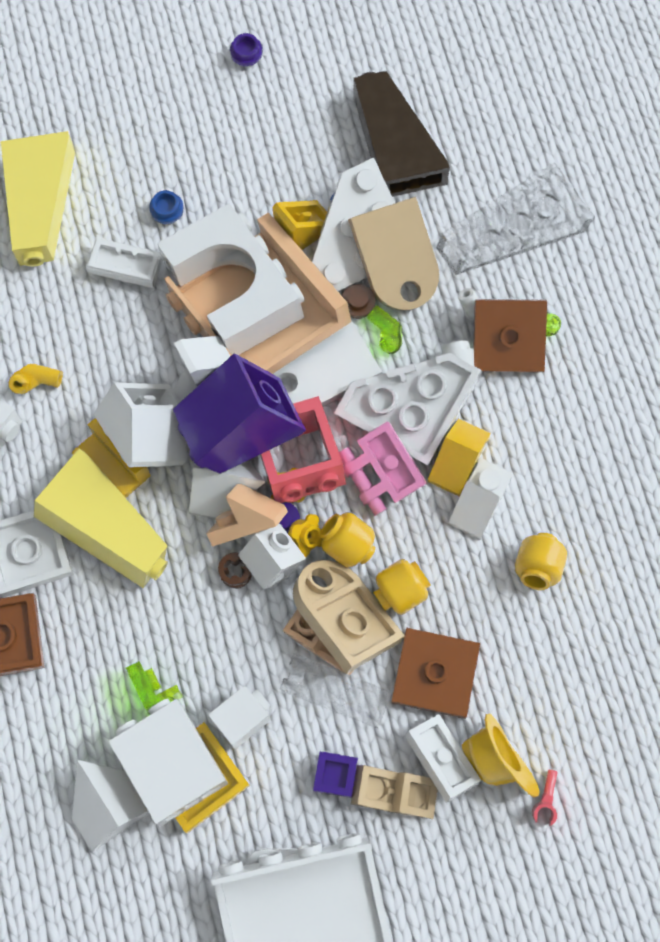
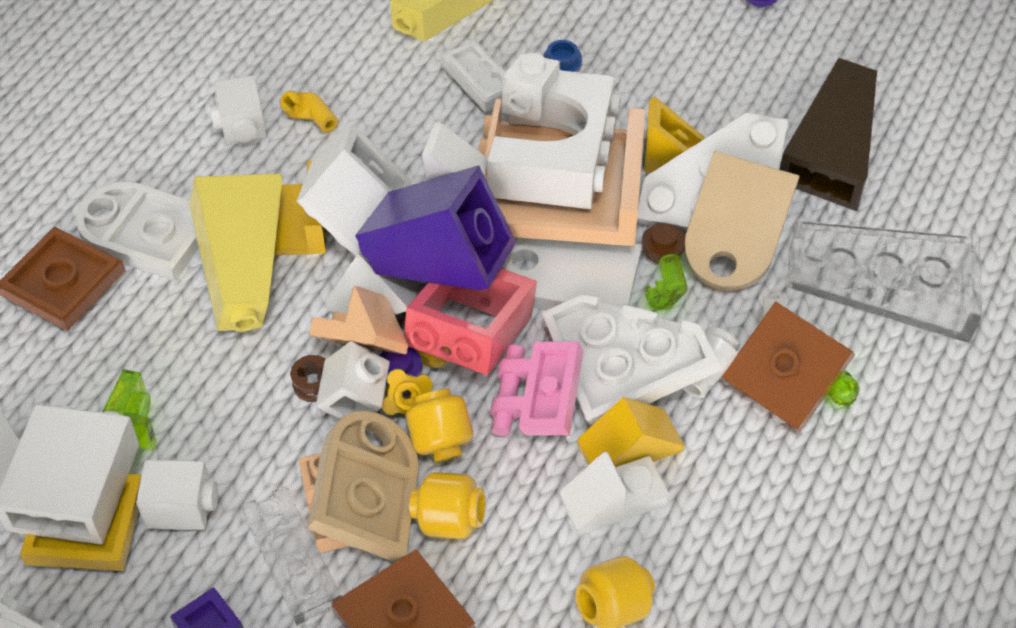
camera: 40 degrees right, 20 degrees down
(183, 253) = (527, 84): none -> white bracket

